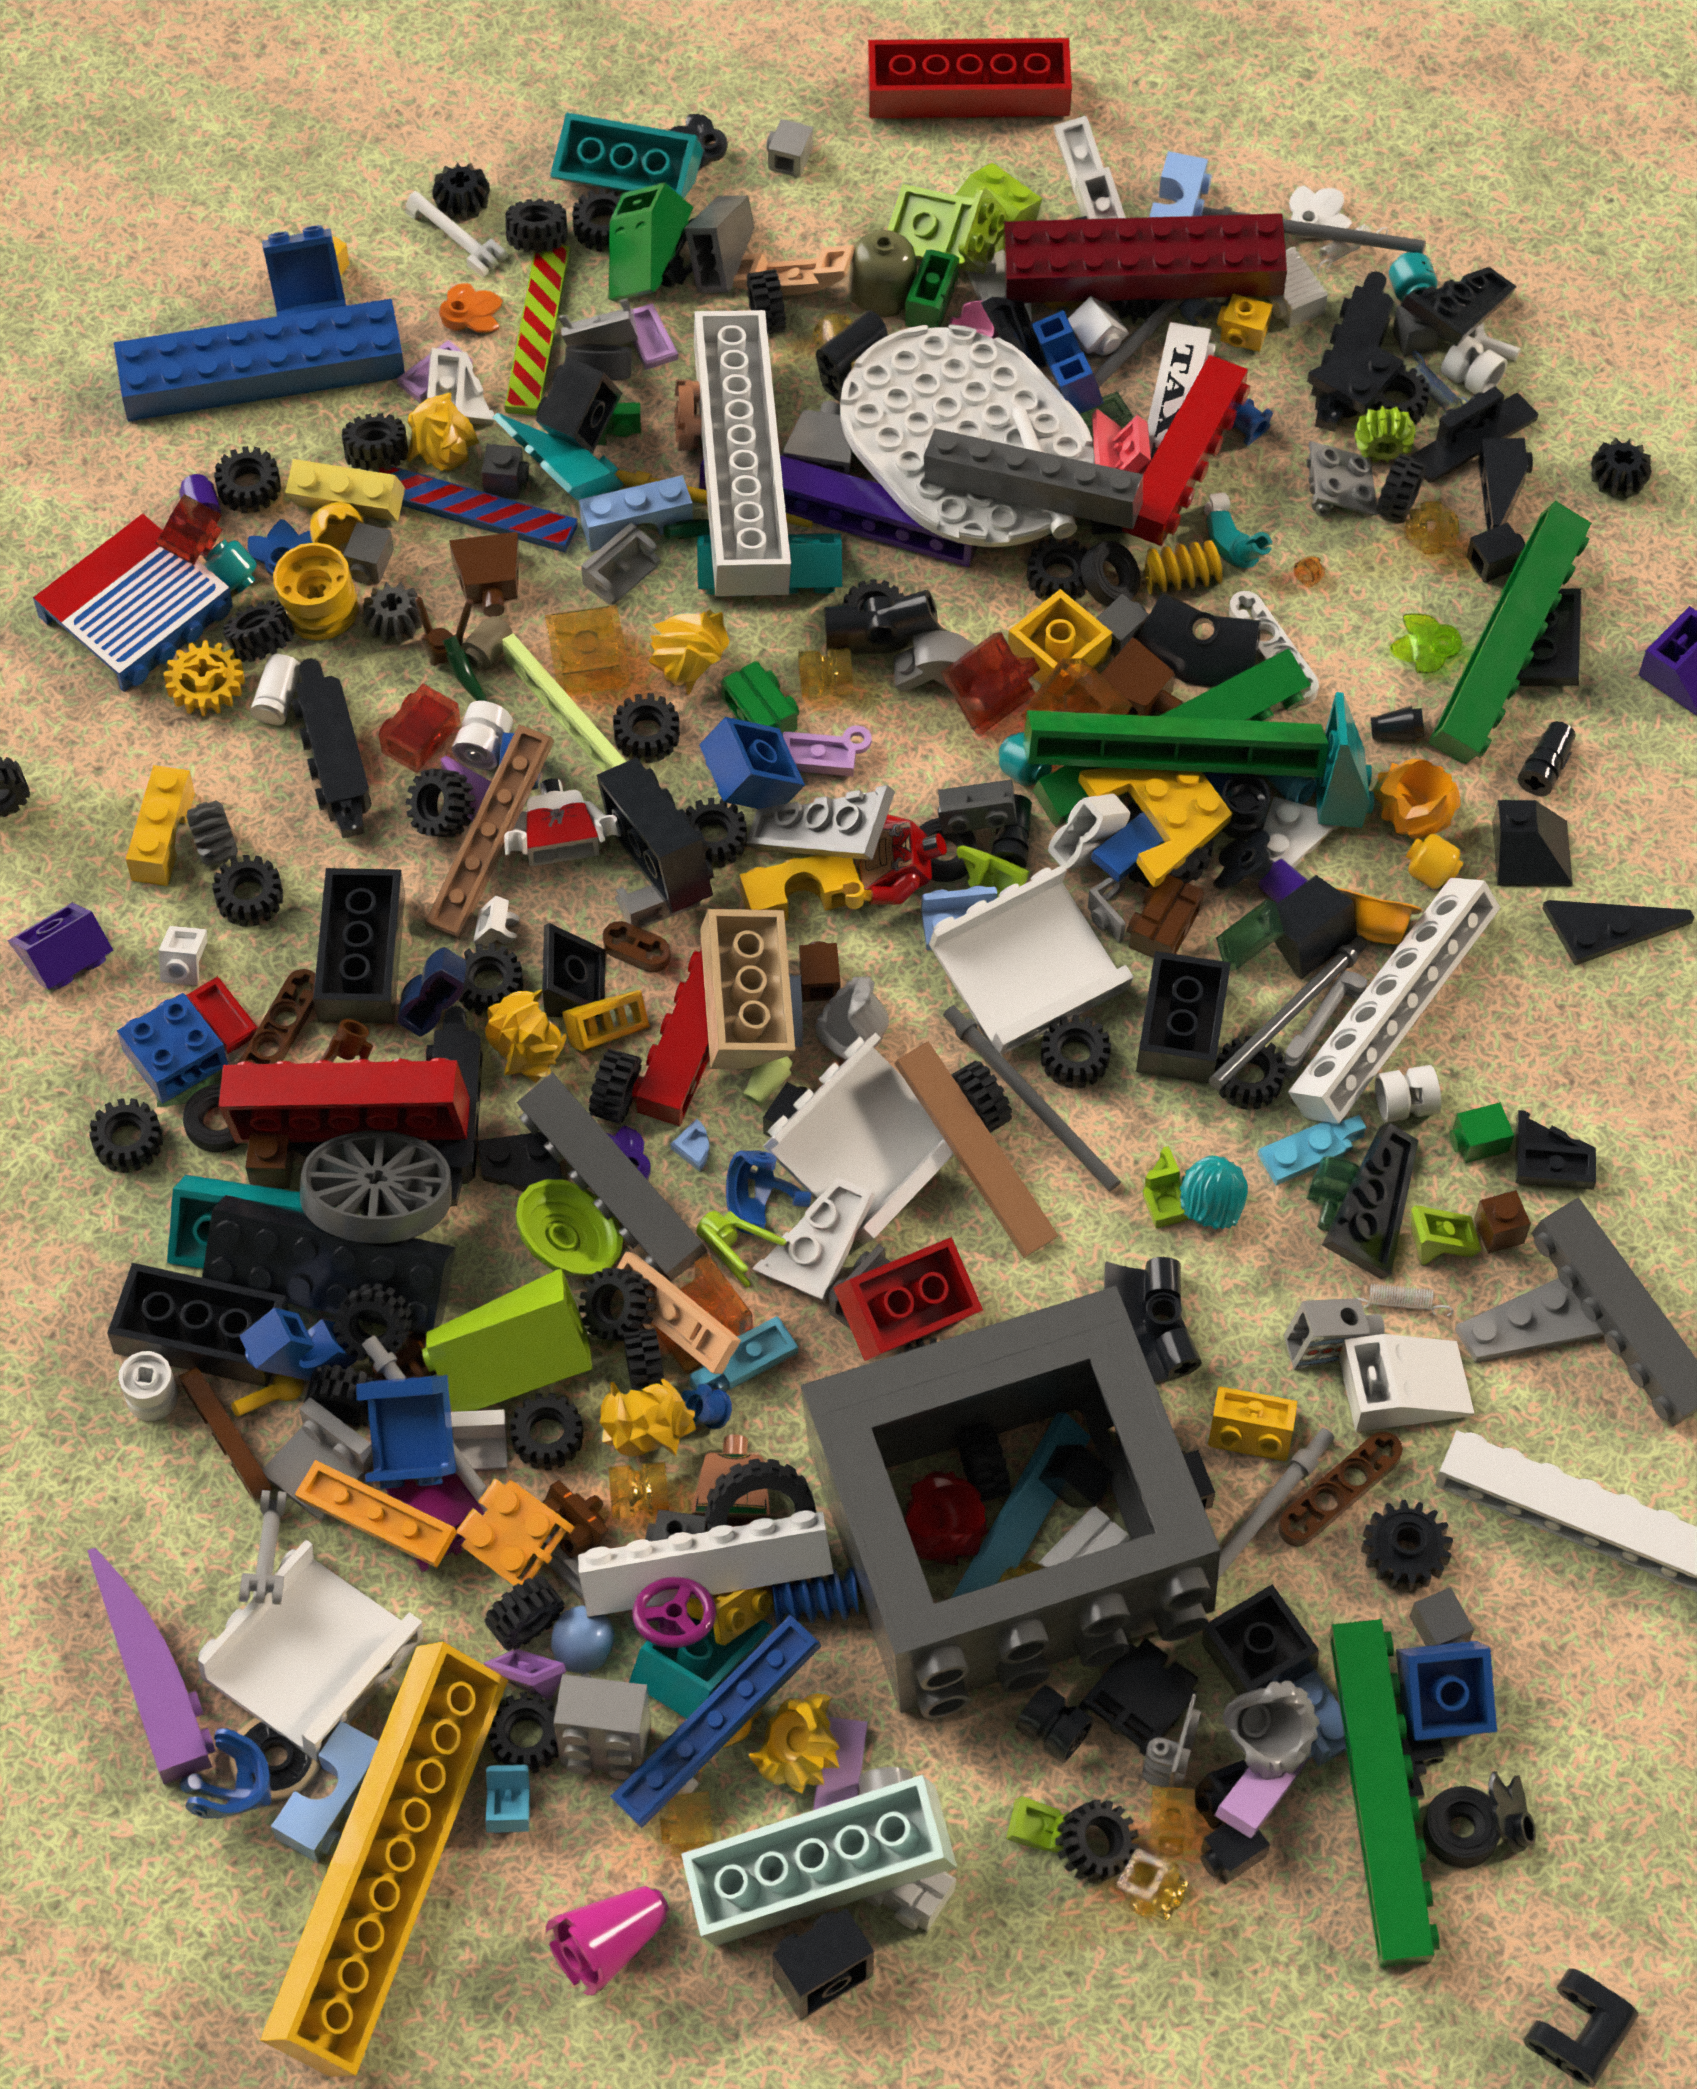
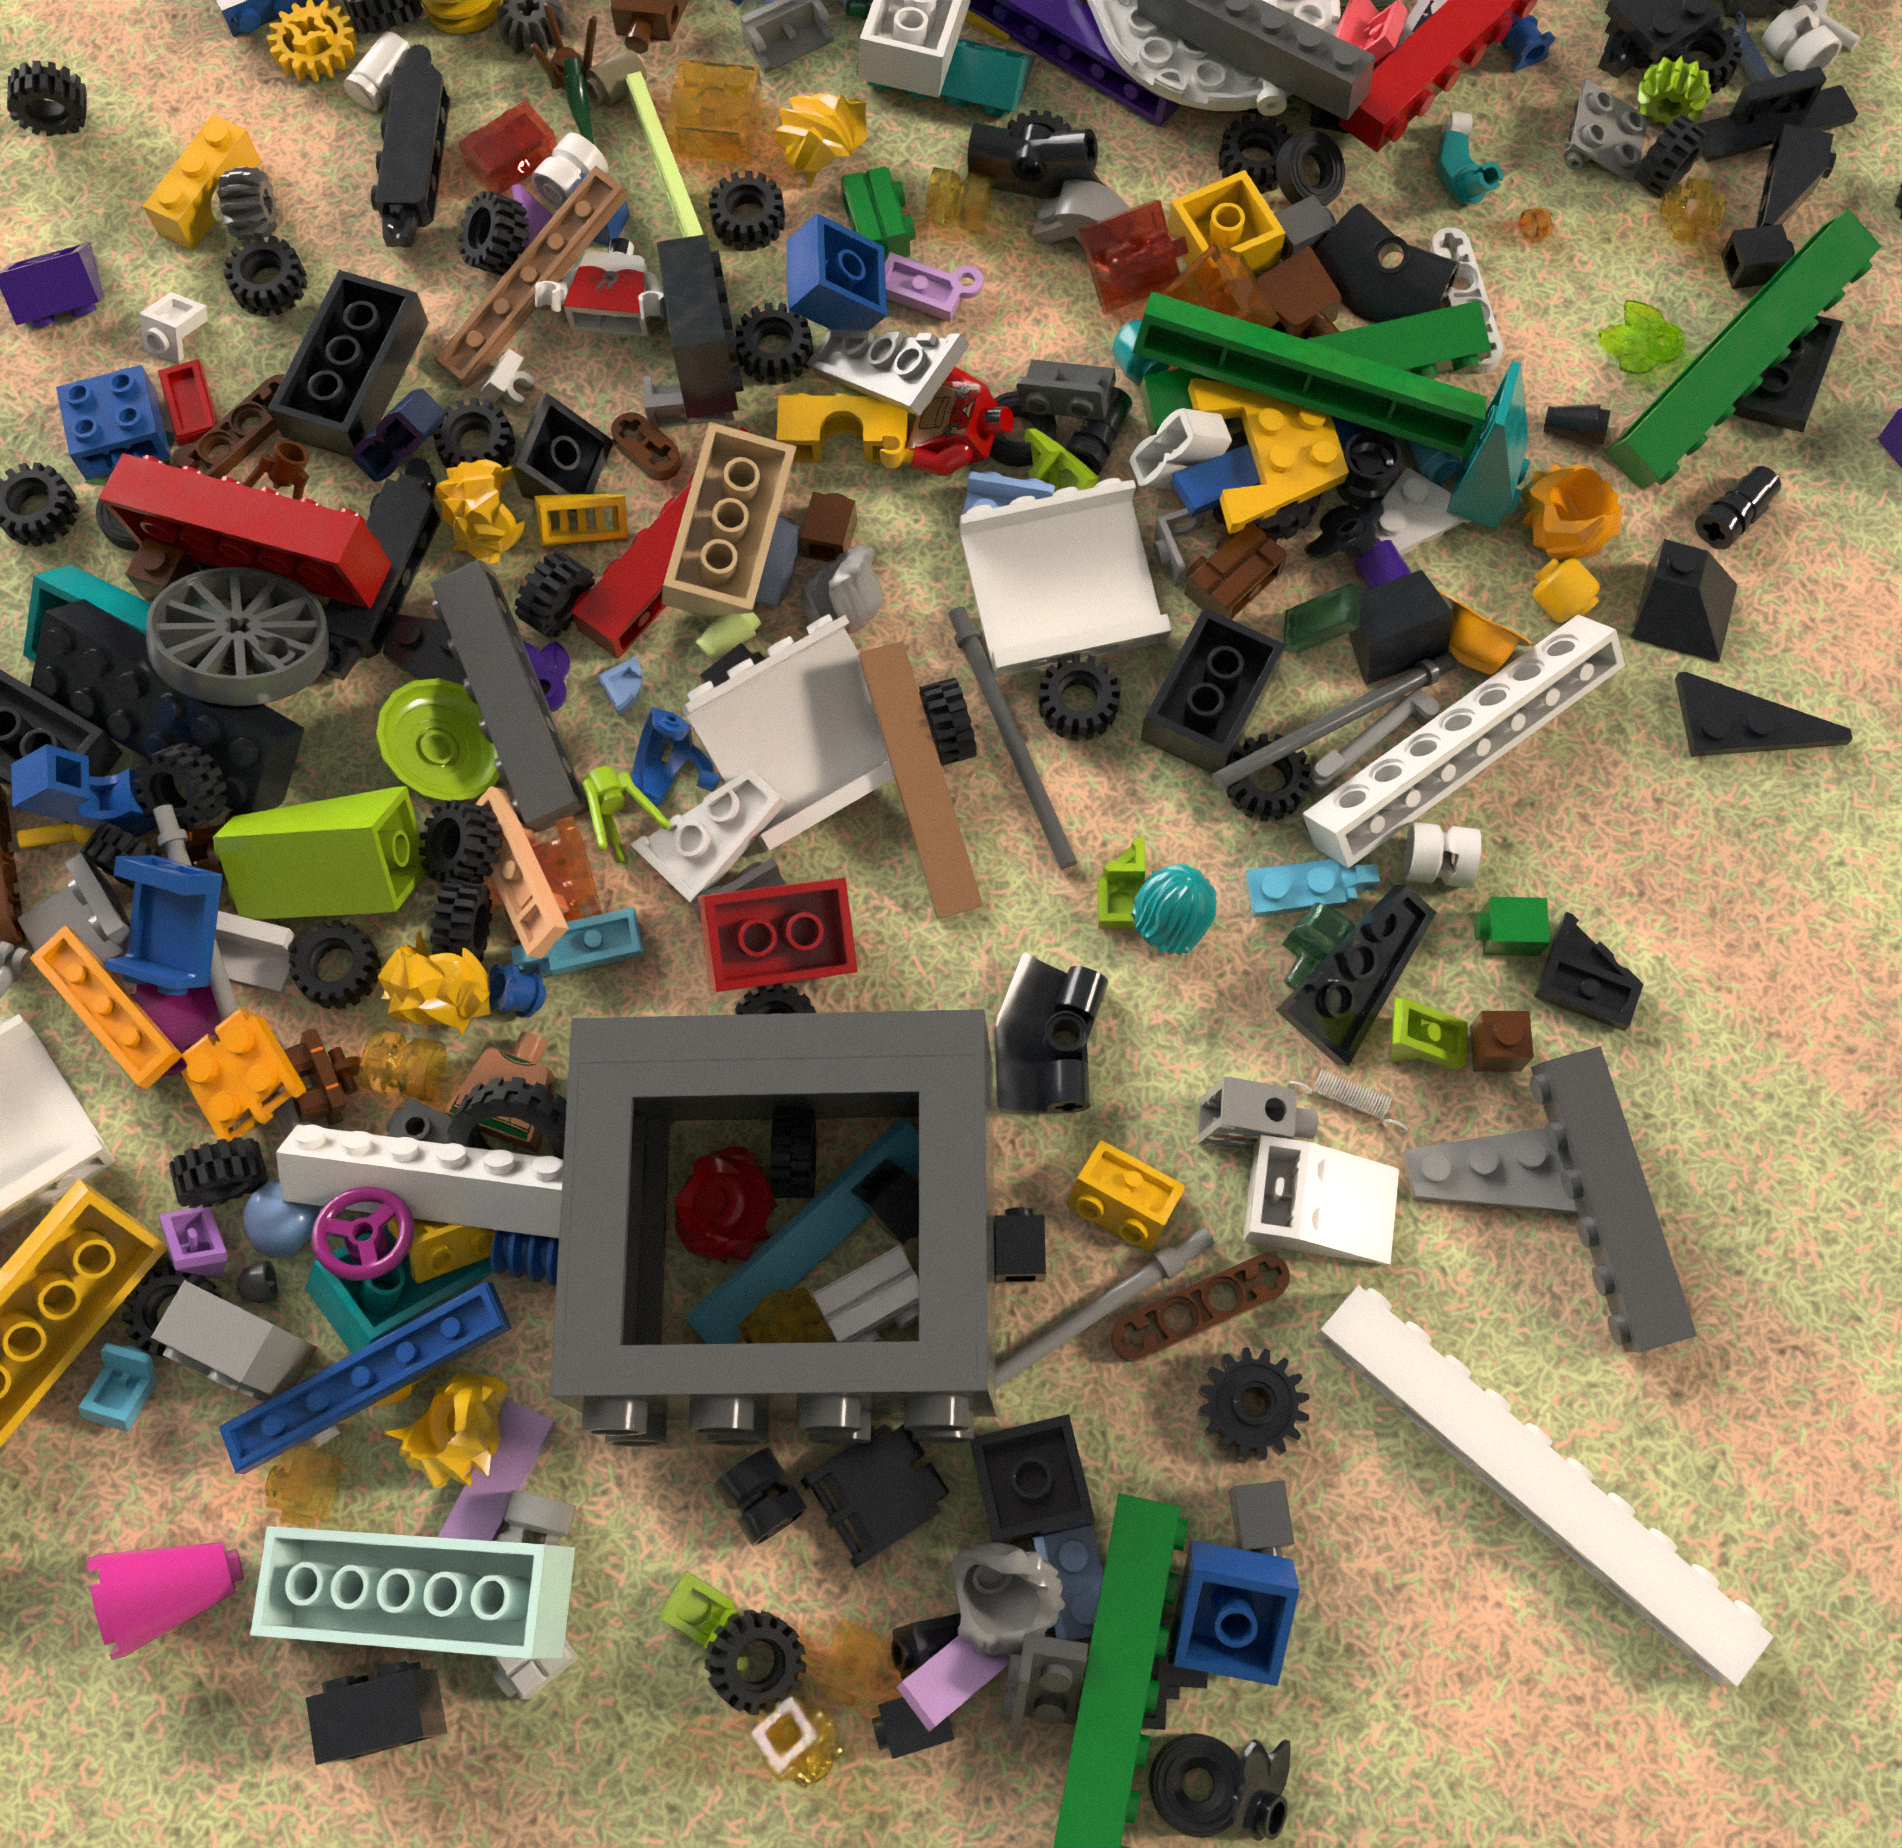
camera: 20 degrees right, 10 degrees up
(1168, 1760) = (877, 1599): light grey hinge -> none
(1182, 565) = (1394, 182): yellow piece -> none
(1324, 1783) = (1044, 1682): none -> dark grey bracket

